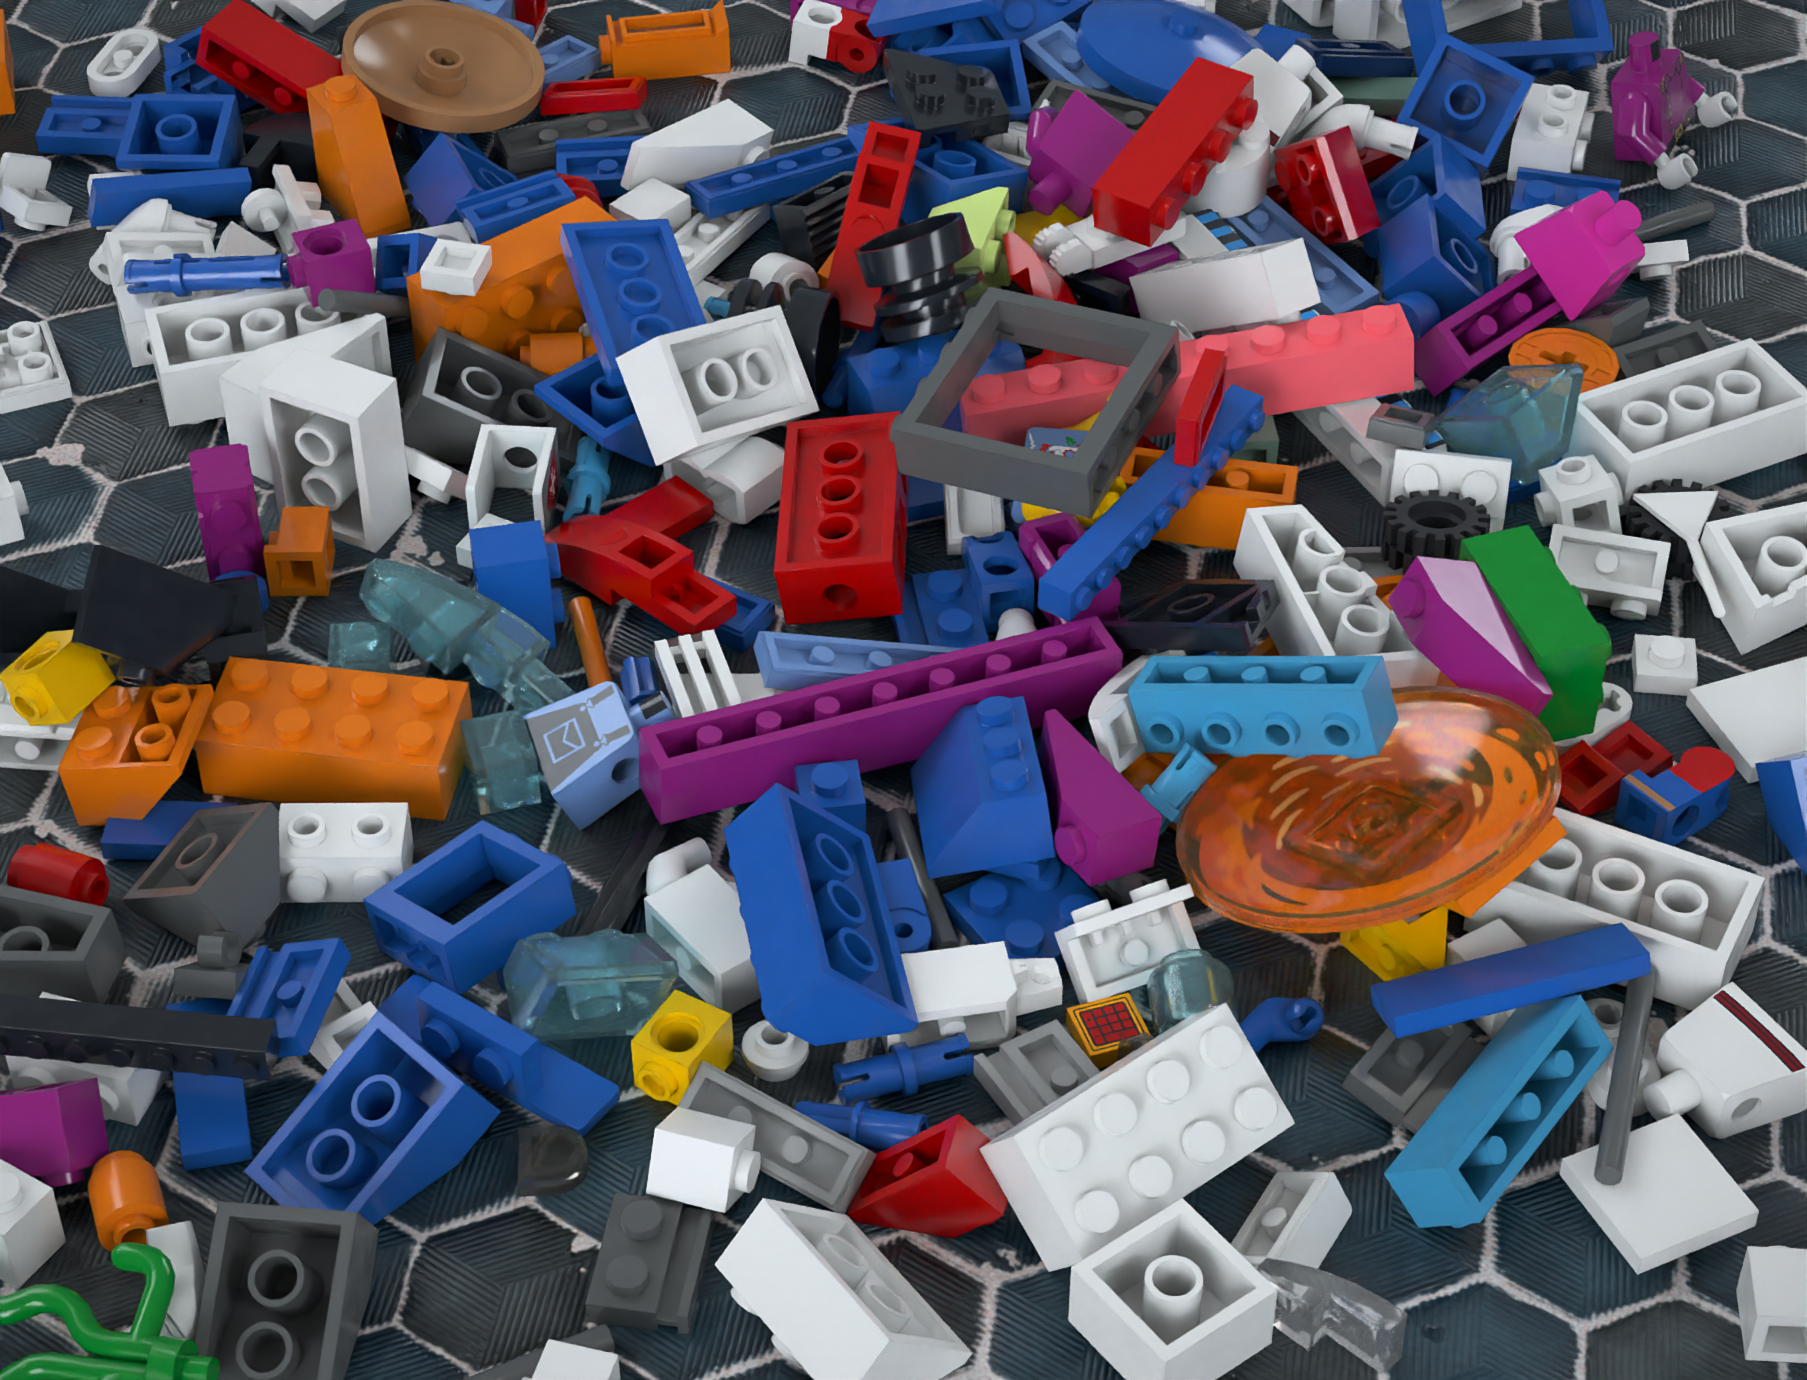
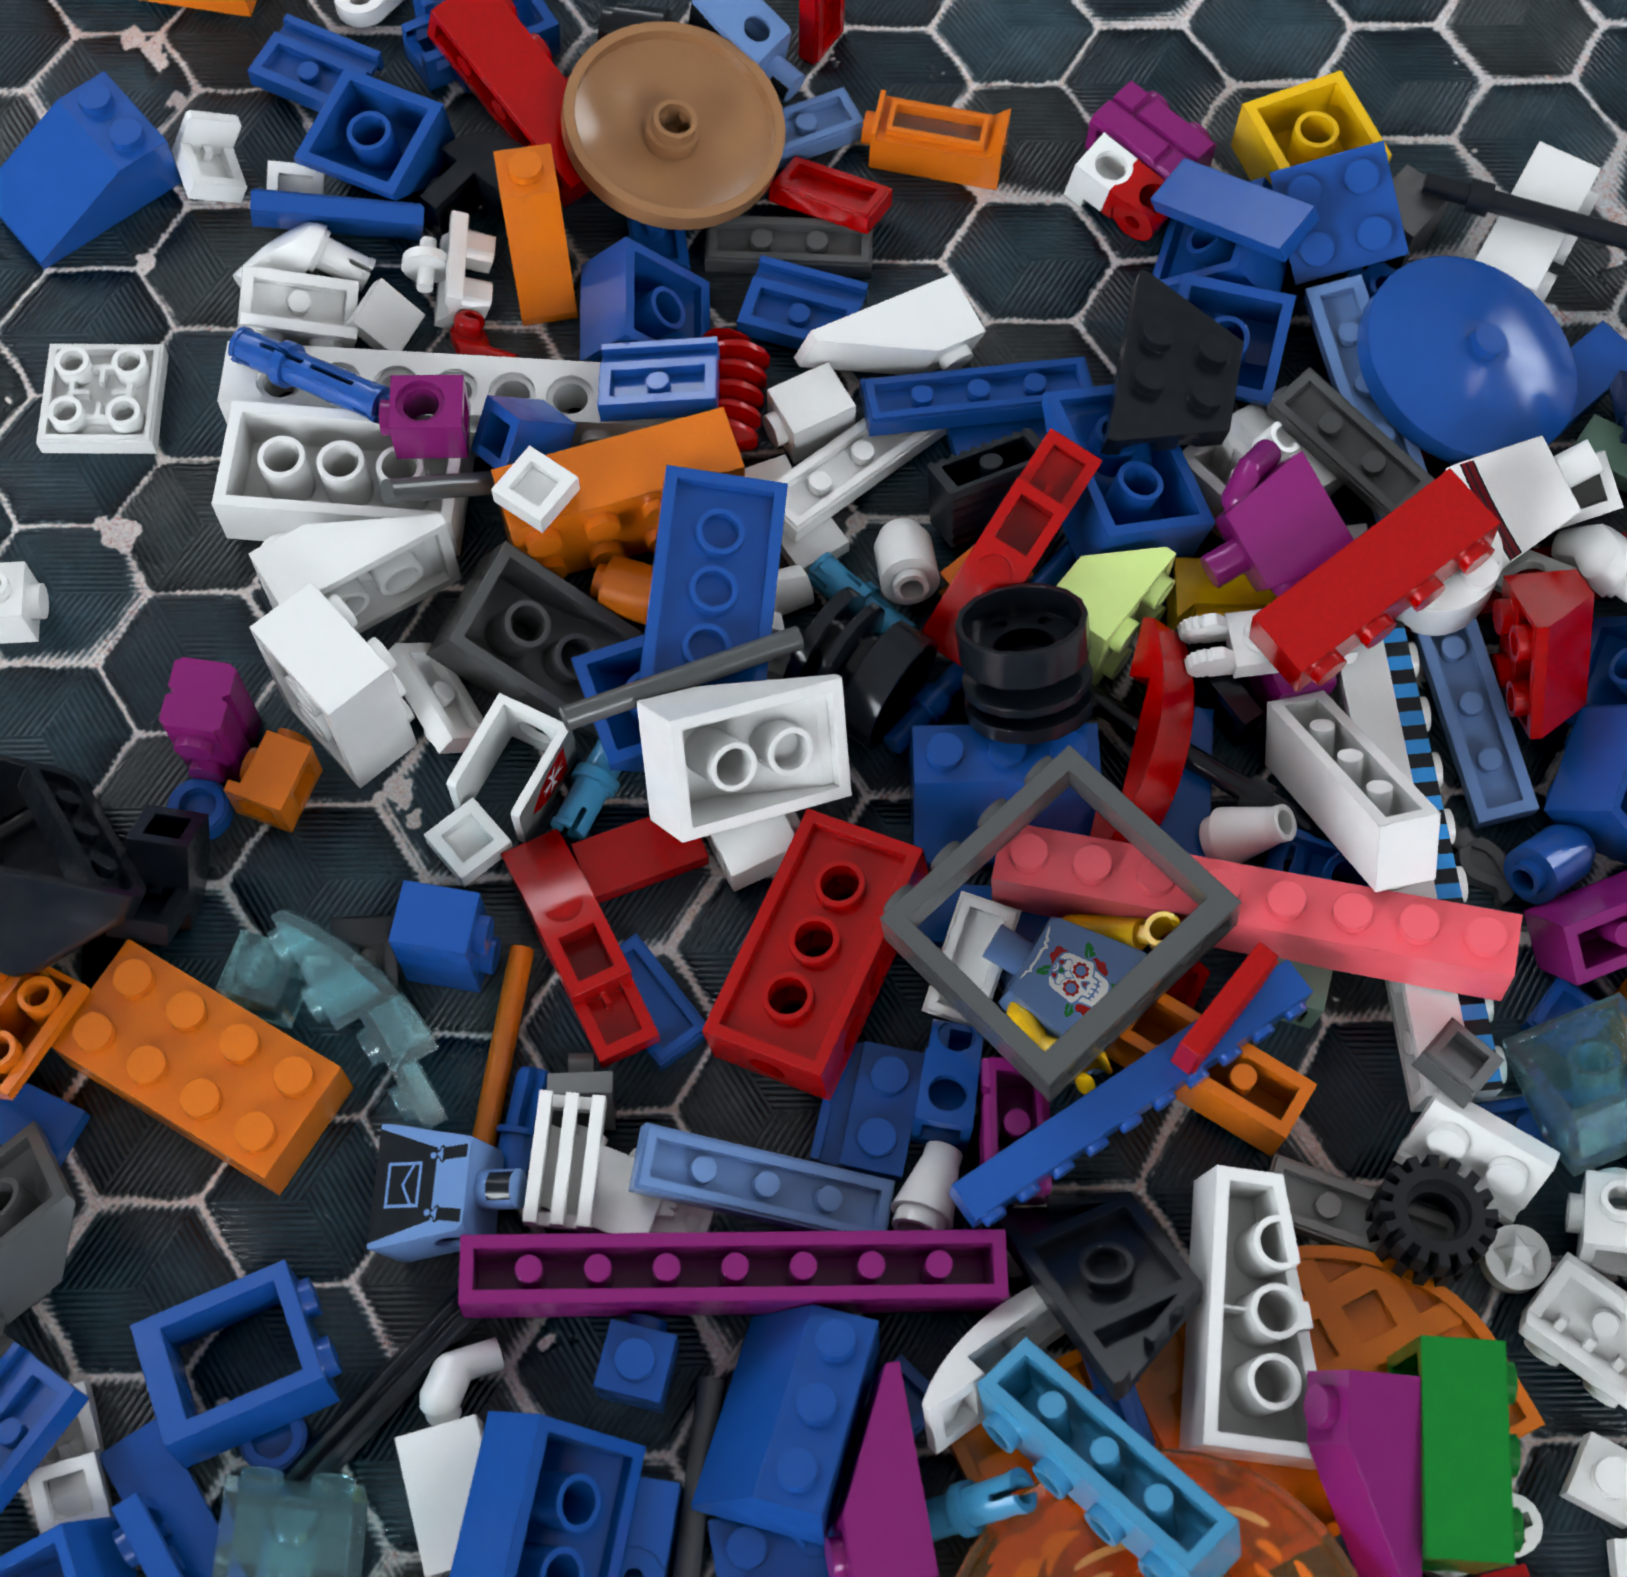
camera: 20 degrees right, 25 degrees up
(341, 849) = (151, 1228): white brick -> none
(500, 761) = (343, 1160): clear light blue brick -> none
(606, 364) = (682, 677): none -> dark grey bar

